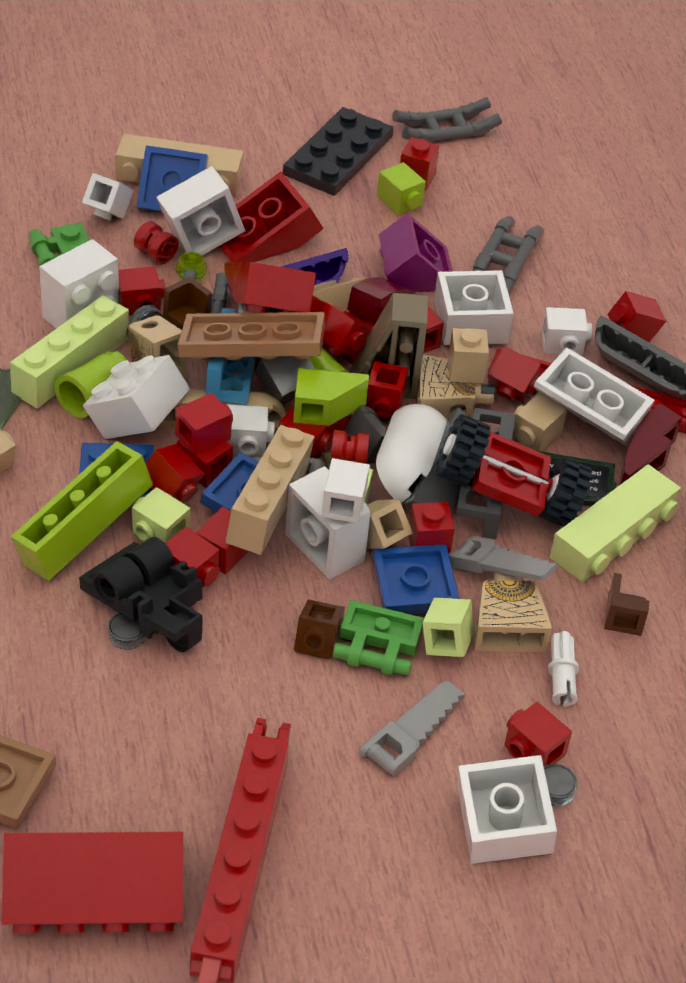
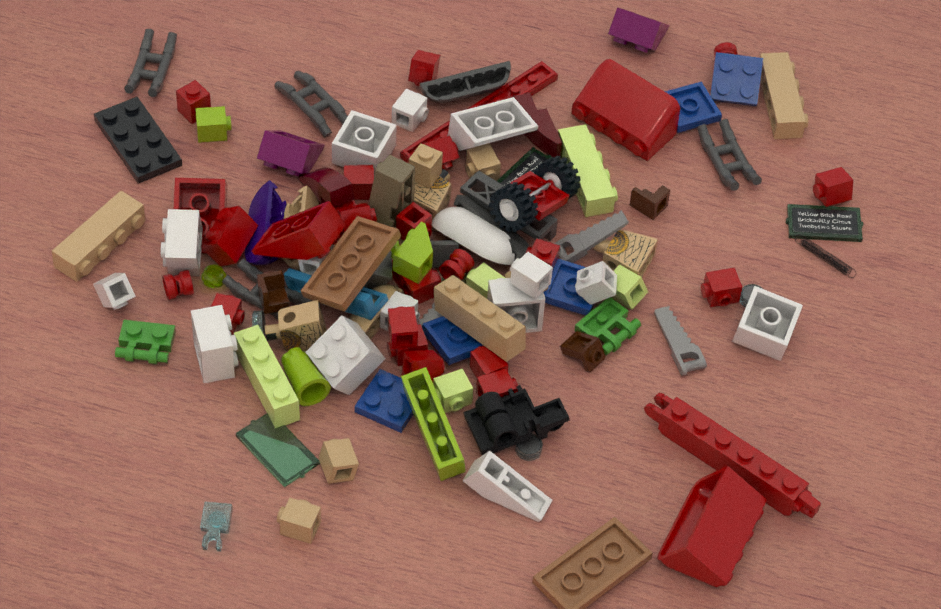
camera: 60 degrees left, 5 degrees up
(39, 627) = (506, 487): none -> white slope
(164, 170) = (124, 245): blue plate -> none
(253, 245) = (229, 235): none -> red brick
(417, 582) = (596, 282): none -> white brick
(563, 669) = (679, 252): white axle -> none

